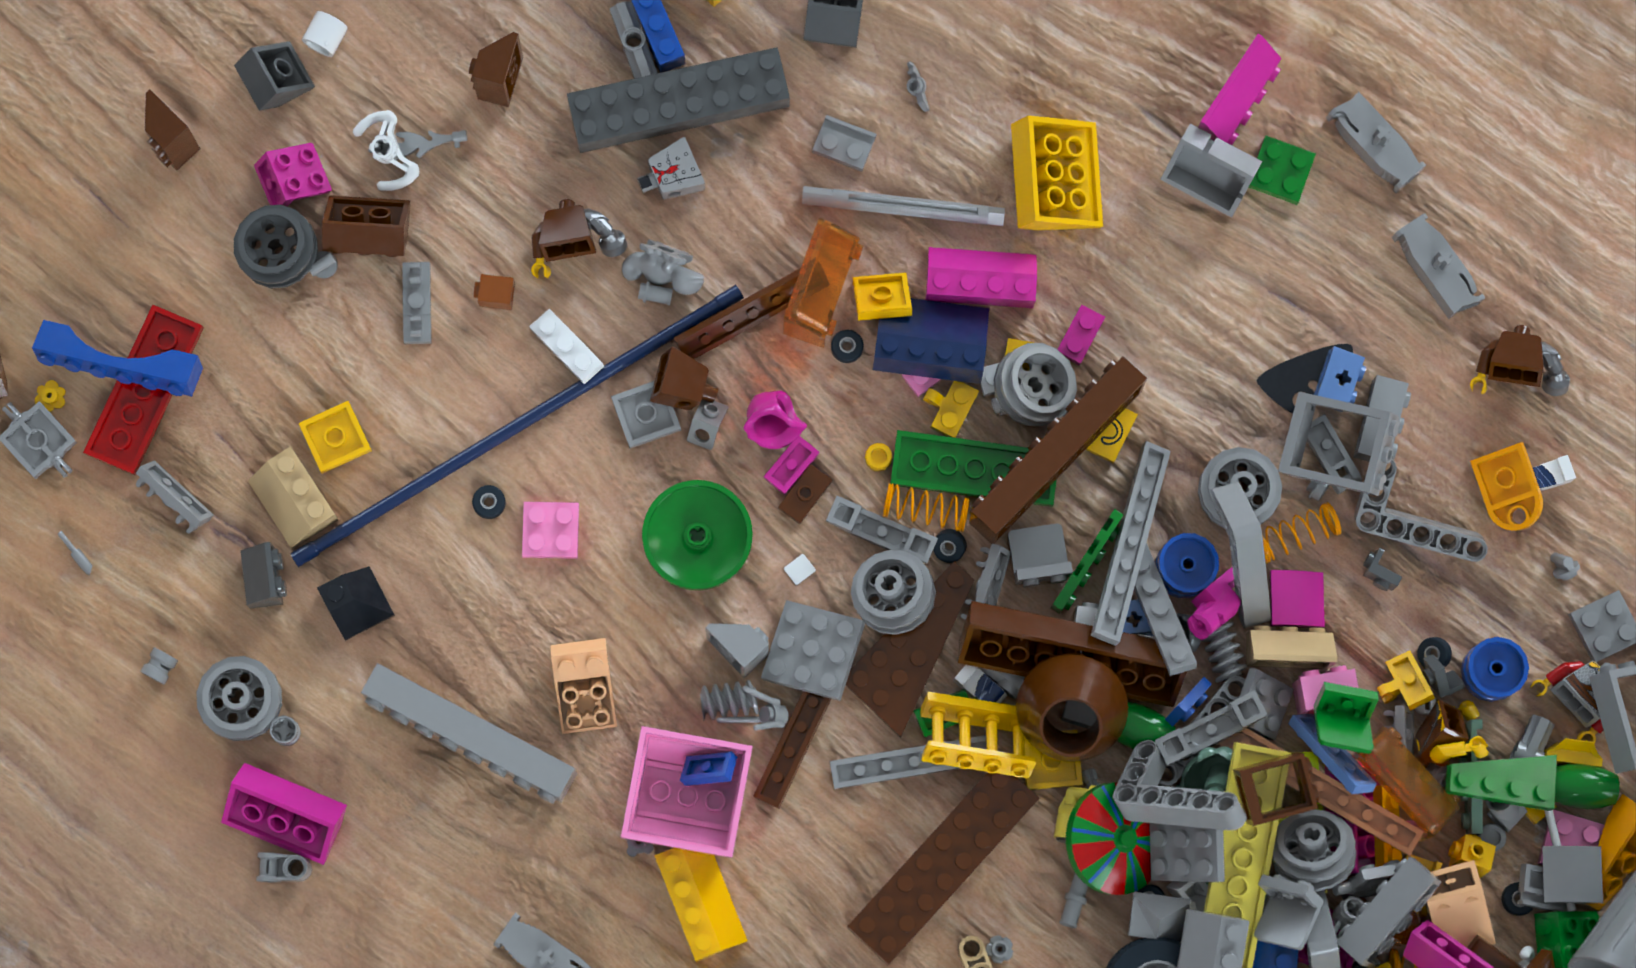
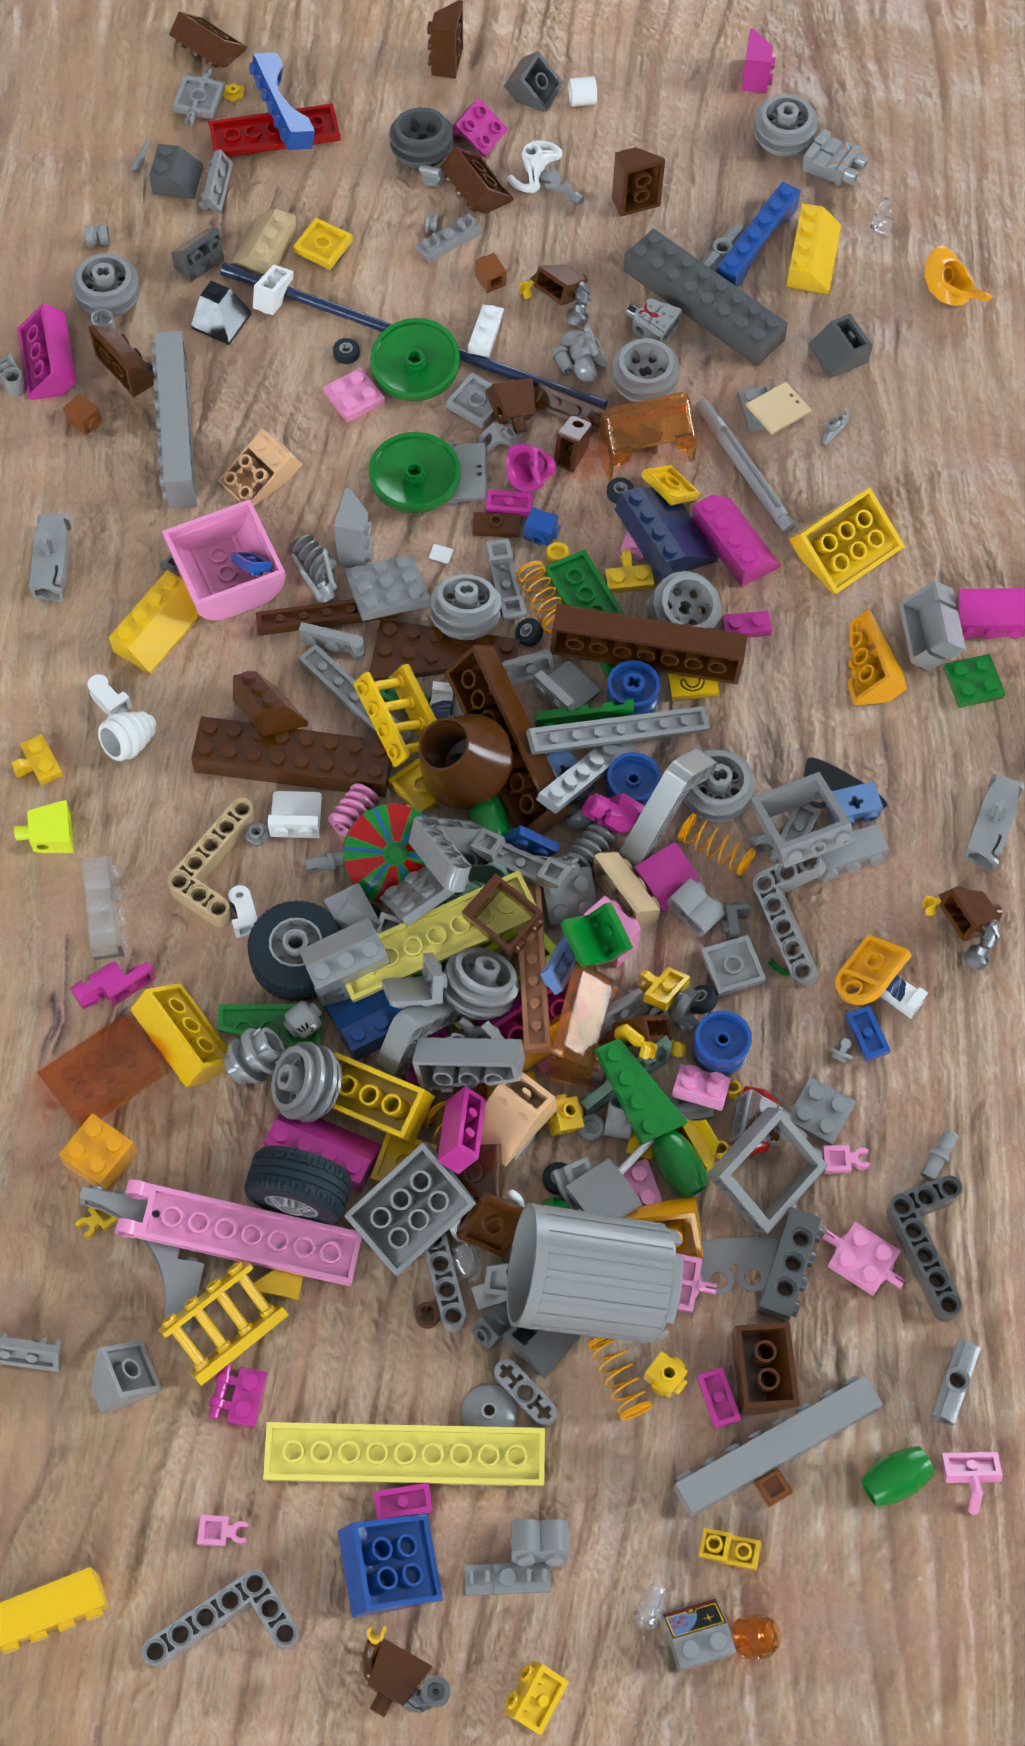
camera: 60 degrees right, 15 degrees down
(130, 530) = (175, 172): none -> dark grey slope
(349, 738) = (121, 359): none -> reddish brown slope
(365, 529) = (271, 289): none -> white arch
(388, 308) = (431, 223): none -> light grey bush
(390, 821) = (82, 414): none -> dark orange brick
(559, 443) = (415, 359): none -> green dish
(709, 465) = (473, 479): none -> light grey door
(735, 198) = (644, 360): none -> light grey wheel
(767, 354) = (576, 433): none -> reddish brown torso
(836, 742) = (332, 640): none -> light grey plate
(843, 454) = (541, 527): none -> blue brick
(862, 126) = (778, 408): none -> tan container
(878, 854) = (265, 704): none -> reddish brown slope
(1005, 899) = (295, 814): none -> white bracket
(1037, 843) = (351, 807): none -> bright pink piece
(1092, 480) = (636, 682): none -> blue wheel
(1210, 253) = (873, 666): none -> light orange wedge
(1236, 679) = (570, 860): none -> light grey bush
(1346, 596) = (696, 907): none -> light grey brick
(1422, 603) = (733, 965): none -> light grey plate
(1455, 561) = (782, 970): none -> green leg
(1524, 717) = (701, 1087): none -> bright pink plate
(1563, 533) = (867, 1033): none -> blue plate

